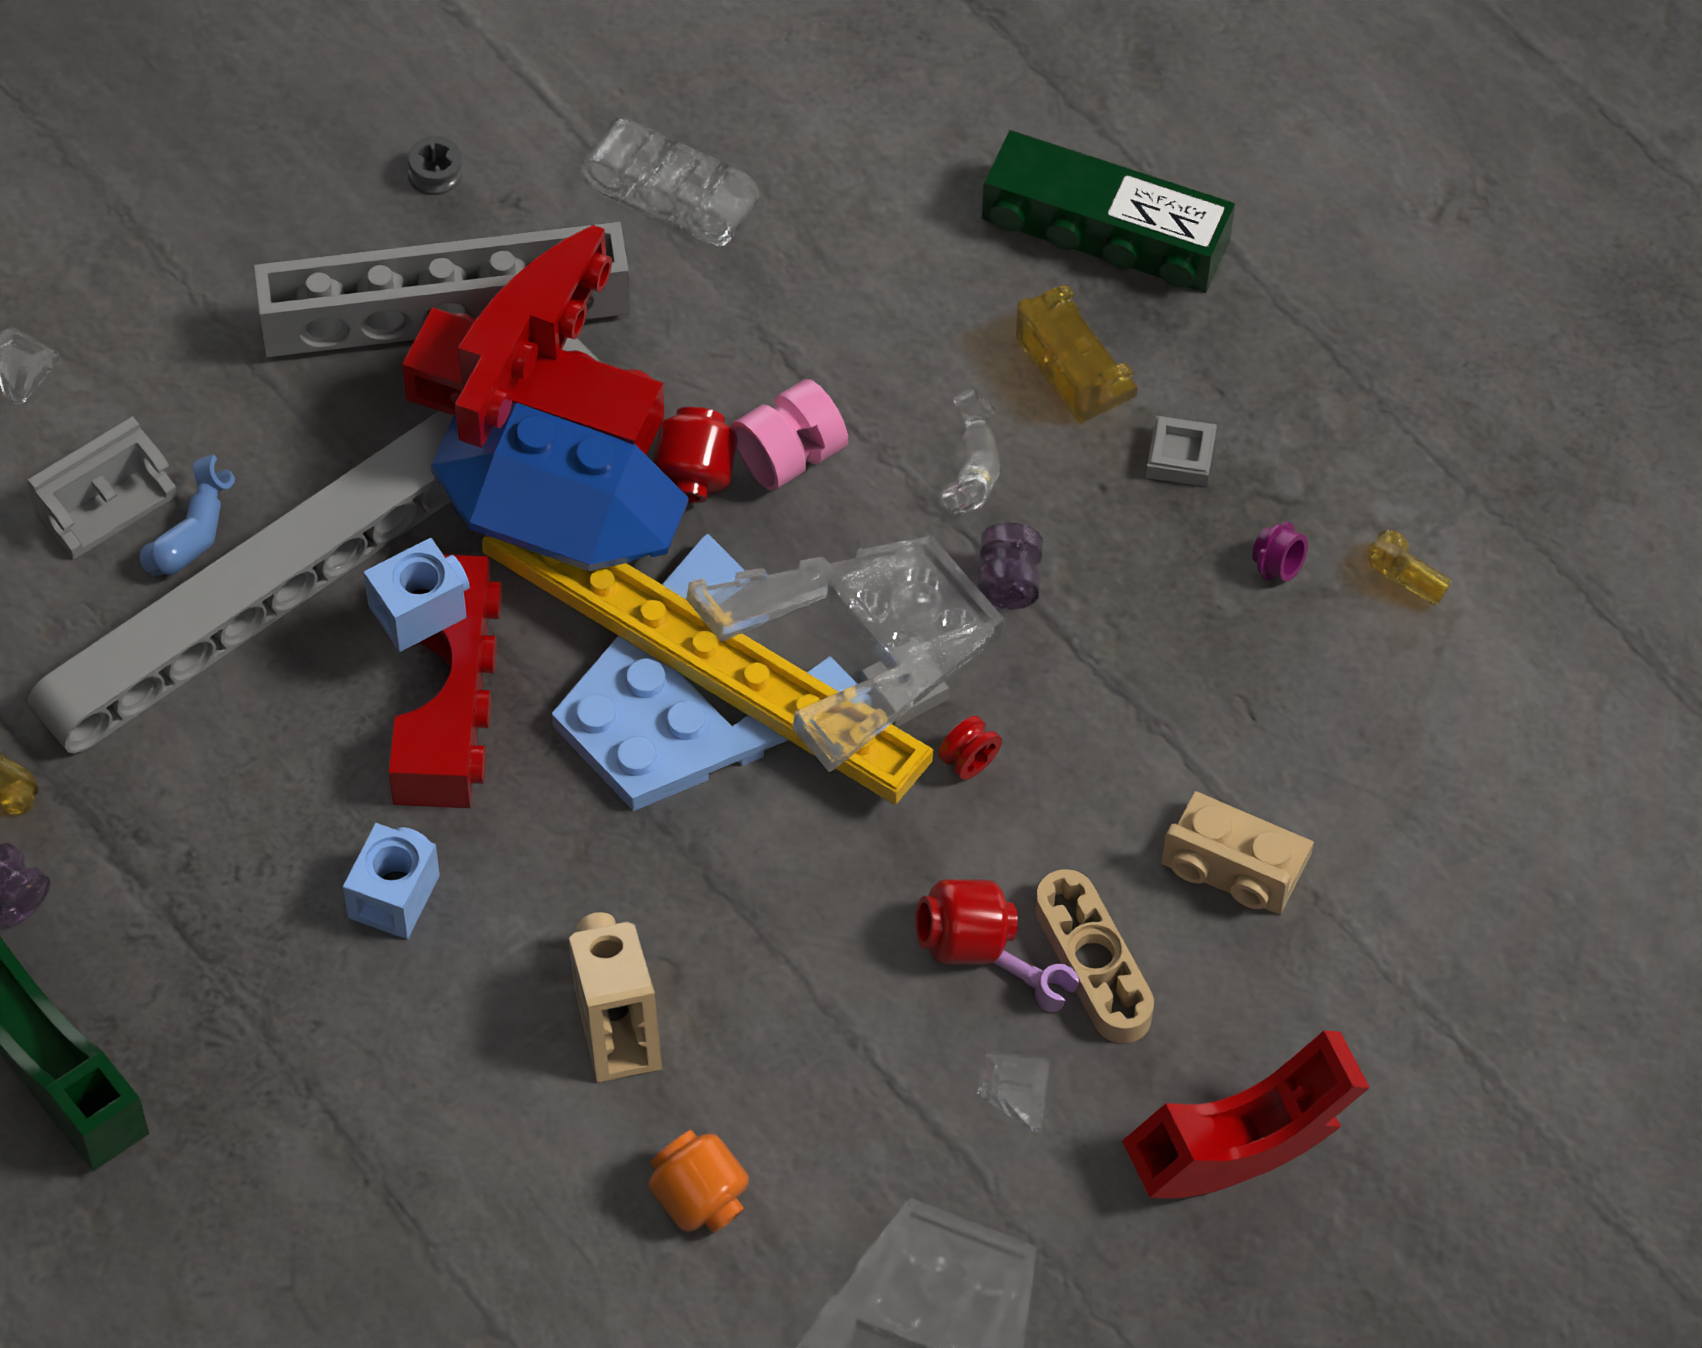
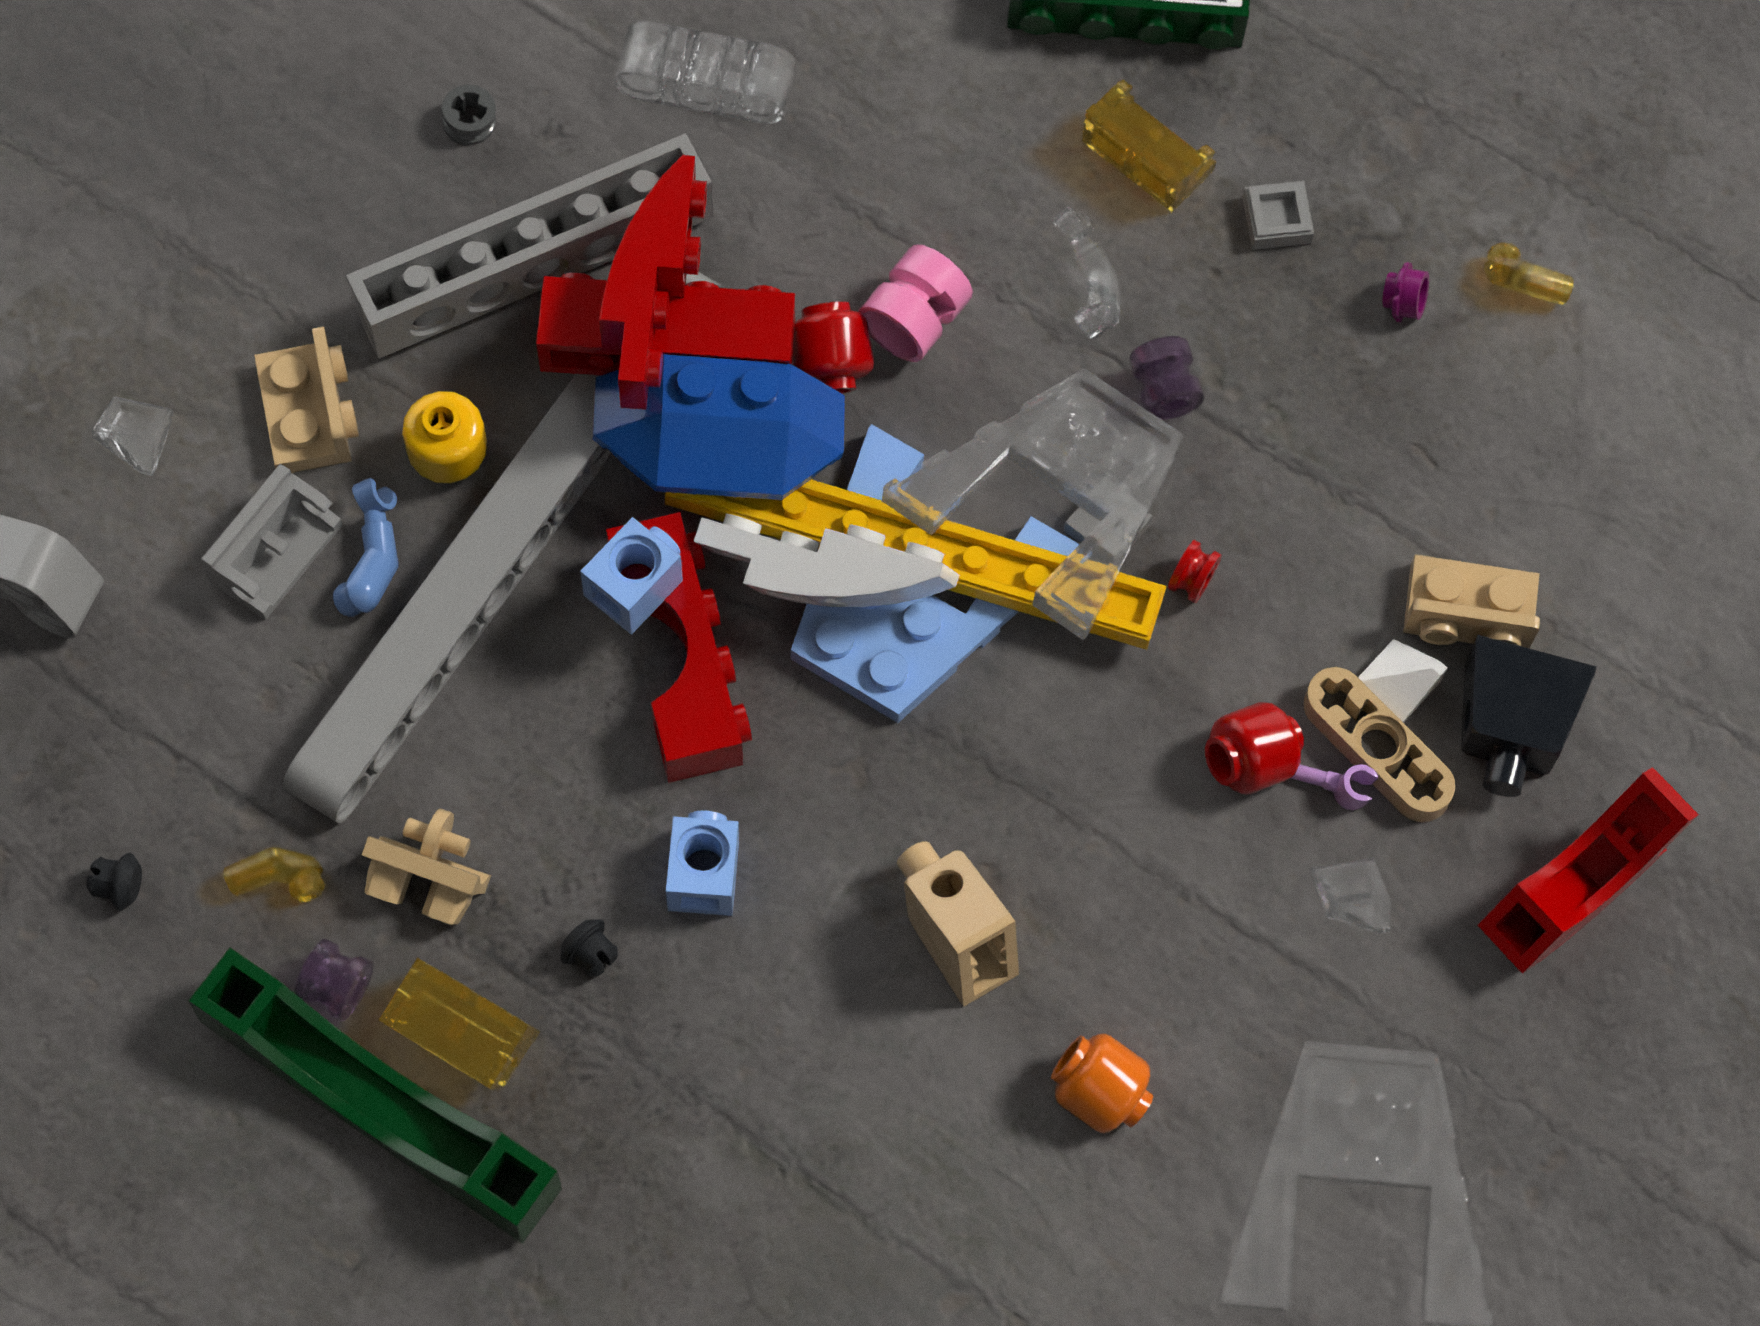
camera: 20 degrees left, 10 degrees up
(104, 800) = (451, 882): none -> tan hips
(108, 957) = (458, 1025): none -> clear yellow hinge
(181, 379) = (304, 406): none -> tan bracket
(257, 925) = (588, 947): none -> black piece
(296, 436) = (444, 437): none -> yellow head
(611, 644) = (844, 572): none -> white slope
(1141, 904) = (1403, 678): none -> white slope
(1245, 960) = (1519, 710): none -> black torso

